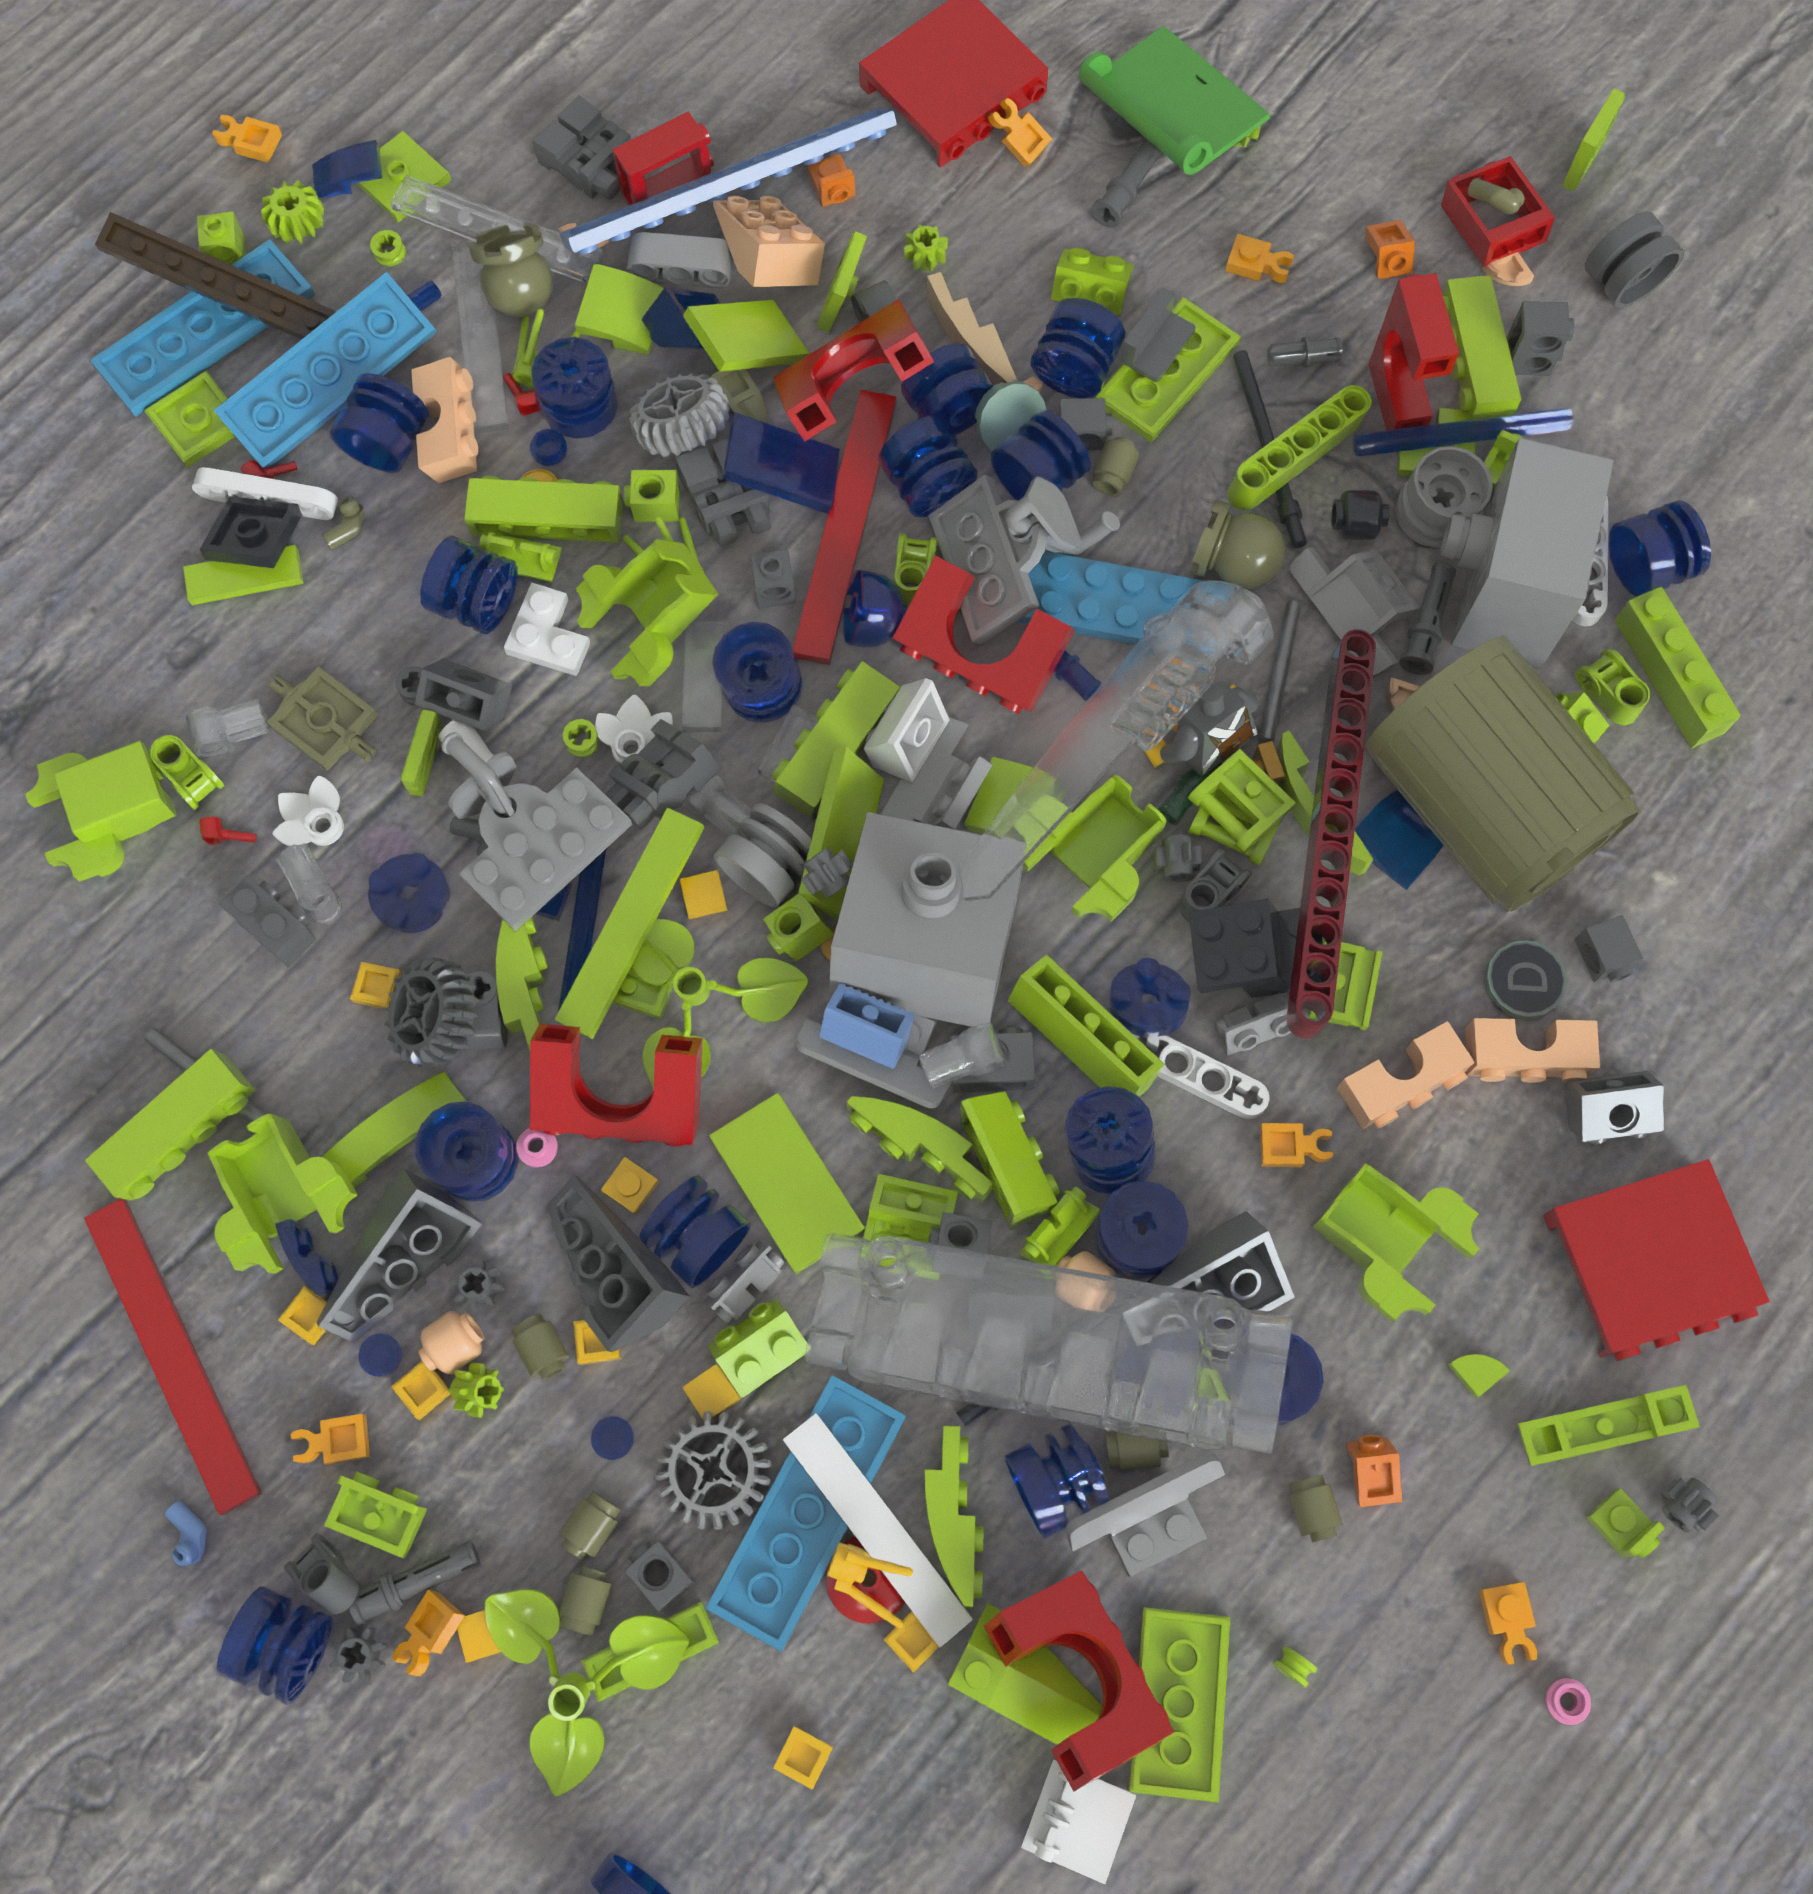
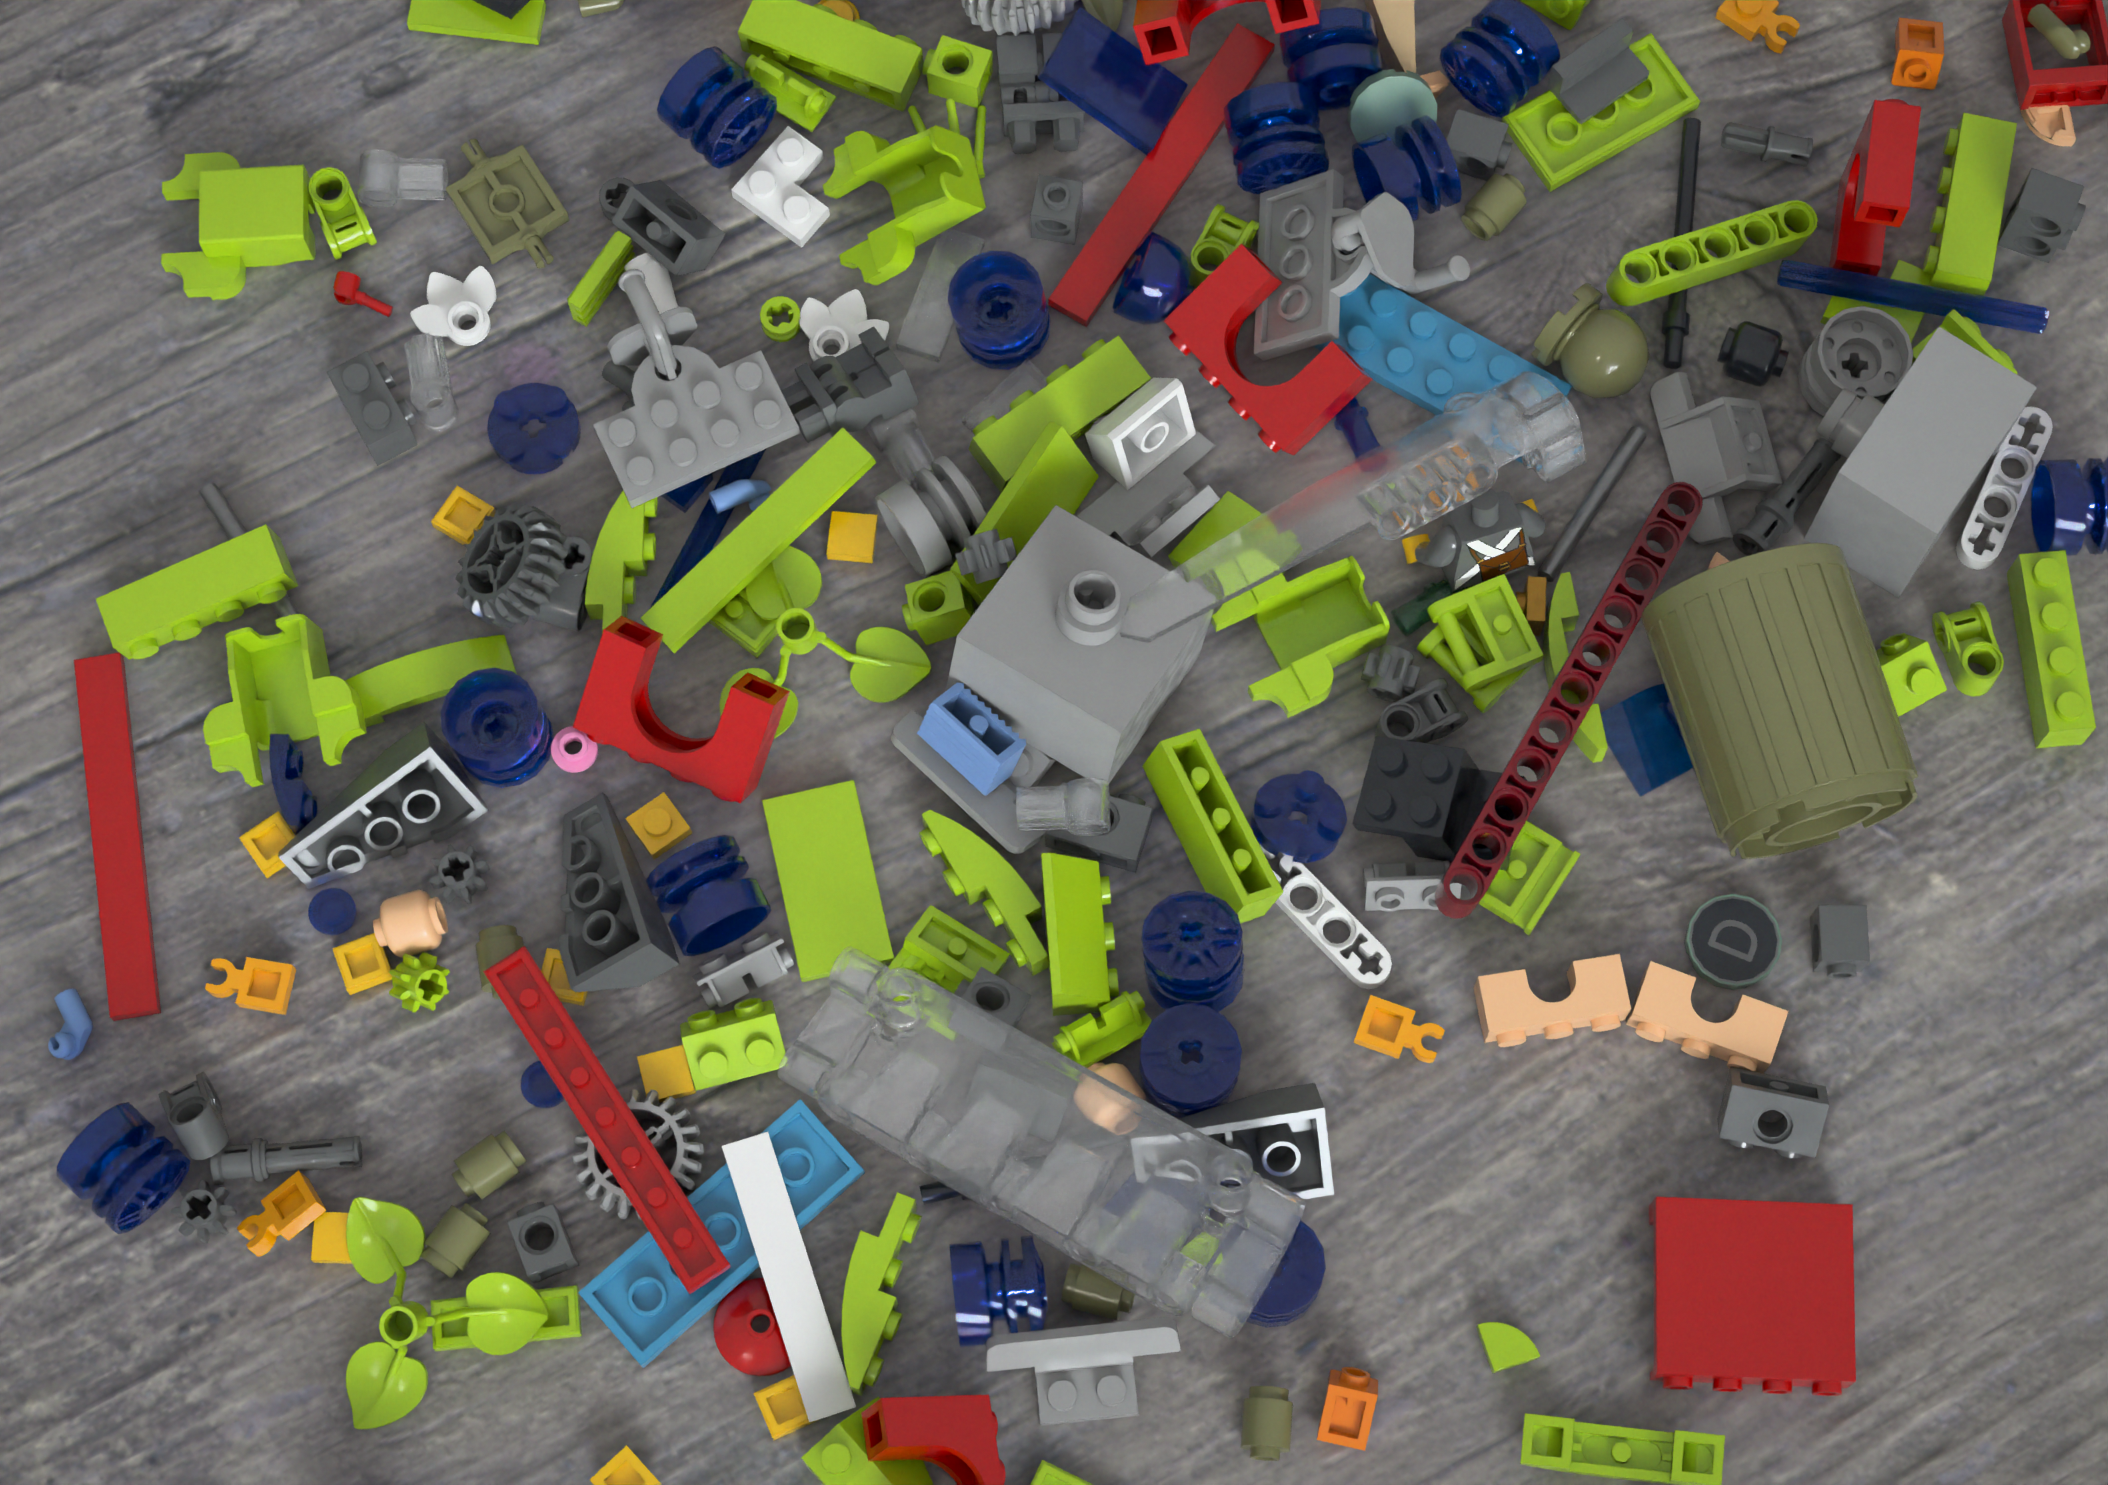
camera: 20 degrees right, 0 degrees up
(375, 1515) = (270, 1075): lime bracket -> none
(598, 889) = (740, 492): none -> medium blue arm
(679, 1453) = (607, 1120): none -> red tile
(850, 1565) = (745, 1301): yellow plant -> none
(1386, 1228) = (1463, 1161): lime piece -> none

